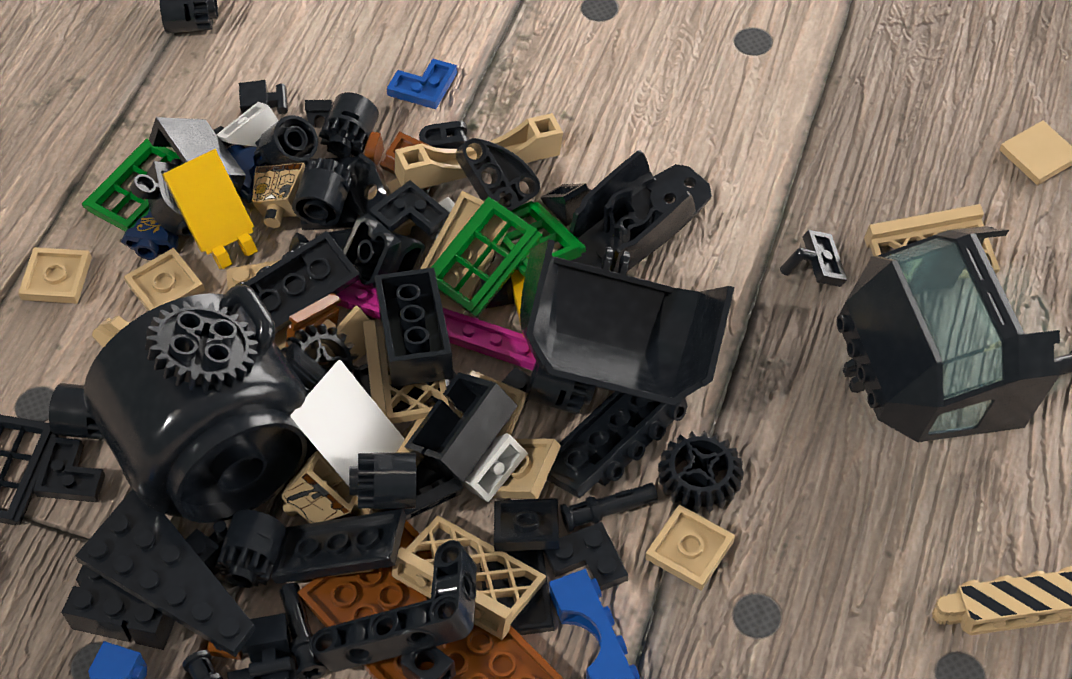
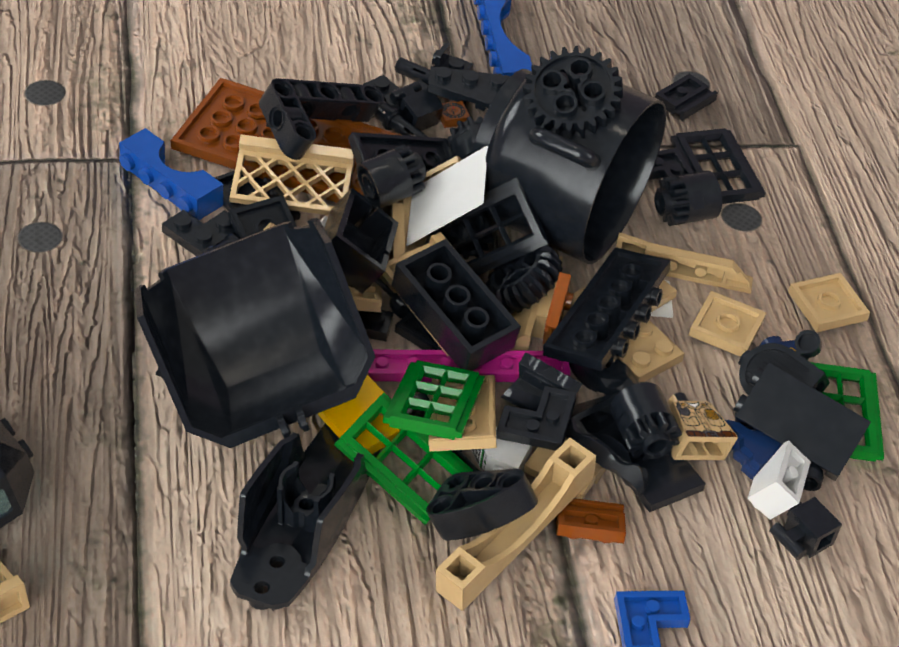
camera: 145 degrees right, 10 degrees down
(211, 206) = (732, 361): yellow tile -> none
(287, 142) = (723, 459): black gear -> none
(316, 109) = (735, 543): black tile -> none
(348, 125) = (684, 520): black gear -> none
(374, 147) = (640, 517): dark orange tile -> none
(436, 135) = (585, 553): black plate -> none
(565, 200) = (388, 530): black slope -> none
(690, 547) = (115, 255): tan plate -> none
(697, 481) = (119, 297): black gear -> none
(823, 257) = (71, 547): black plate -> none

